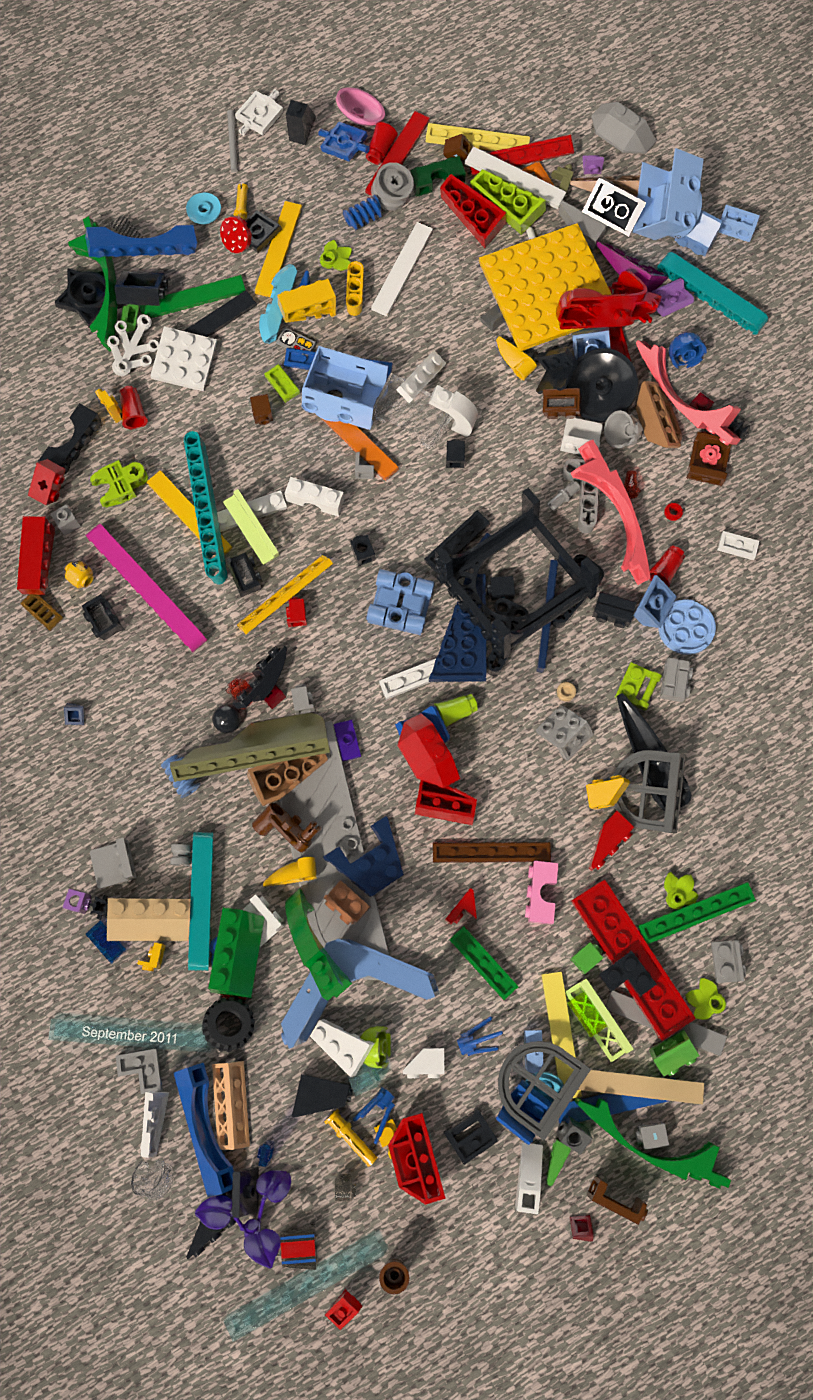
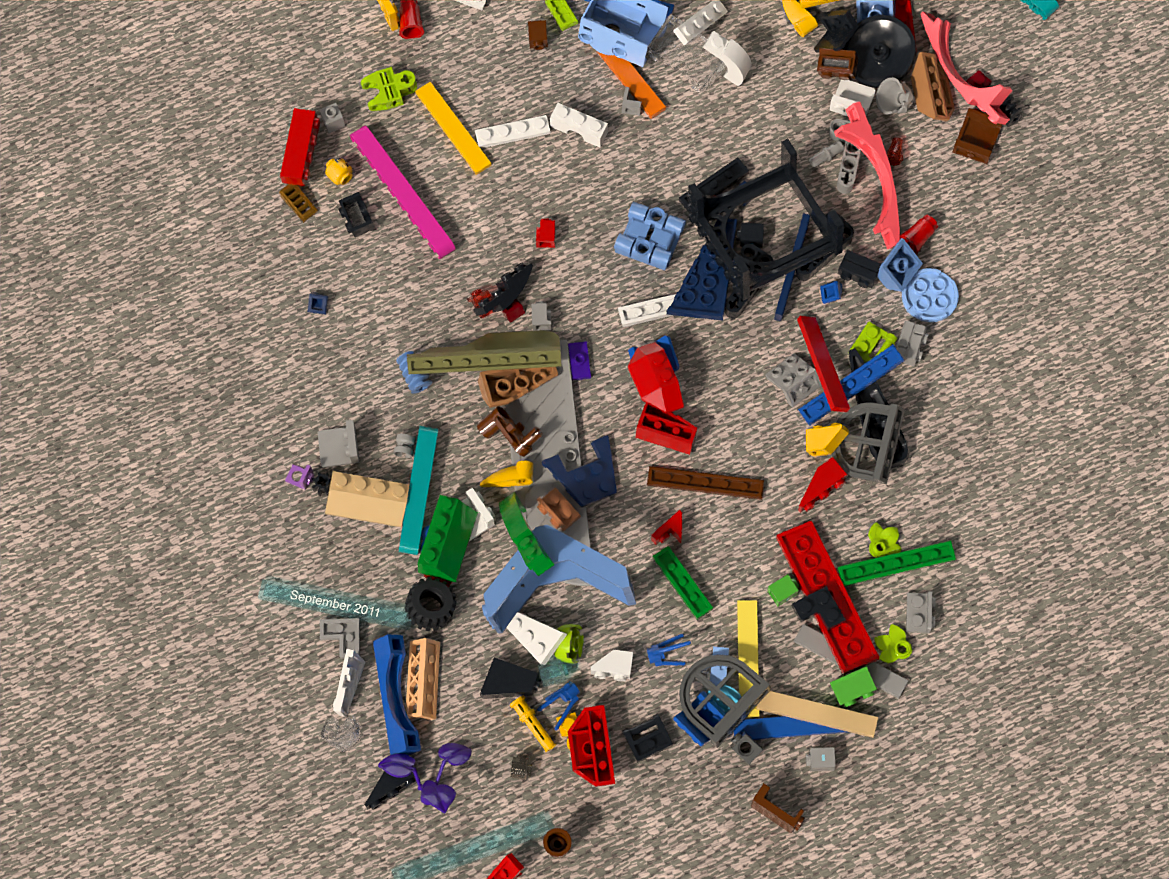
camera: 10 degrees right, 5 degrees down
(46, 482) = (319, 79): red brick -> none
(85, 423) = (332, 58): black arch -> none
(110, 949) = (326, 523): clear blue plate -> none
(156, 955) = (369, 534): yellow bracket -> none
(195, 448) = (469, 65): teal beam -> none
(226, 718) = (465, 325): black hair -> none
(243, 574) = (499, 191): black window -> none
(245, 1192) = (427, 755): black plate -> none
(251, 527) = (512, 147): yellowish green fence -> none
(265, 1153) = (451, 723): clear blue plate -> none
(284, 594) = (537, 214): yellow tile -> none
(299, 1247) = (469, 813): torso -> none
(366, 556) = (619, 189): black brick -> none
(455, 454) = (724, 100): black brick -> none
(456, 708) = (690, 343): lime plant -> none
(529, 1179) = (697, 781): white slope -> none
(538, 910) = (751, 508): bright pink arch -> none
(557, 1158) = (728, 766): bright green slope -> none
(566, 691) = (798, 342): tan tile -> none
(581, 1230) = (743, 836): dark red slope -> none
(587, 1014) = (775, 641): clear neon green plate -> none
(590, 635) = (833, 292): none -> blue slope
(594, 715) = (823, 364): none -> red tile
(612, 1026) = (792, 645): yellowish green fence -> none
(625, 732) = (854, 383): none -> blue tile
(673, 506) = (934, 177): red plate -> none
(690, 348) = (973, 24): blue cylinder -> none
(697, 1163) = (859, 790): green slope -> none
(712, 460) = (980, 137): coral plant -> none
(738, 545) = (993, 223): white plate -> none

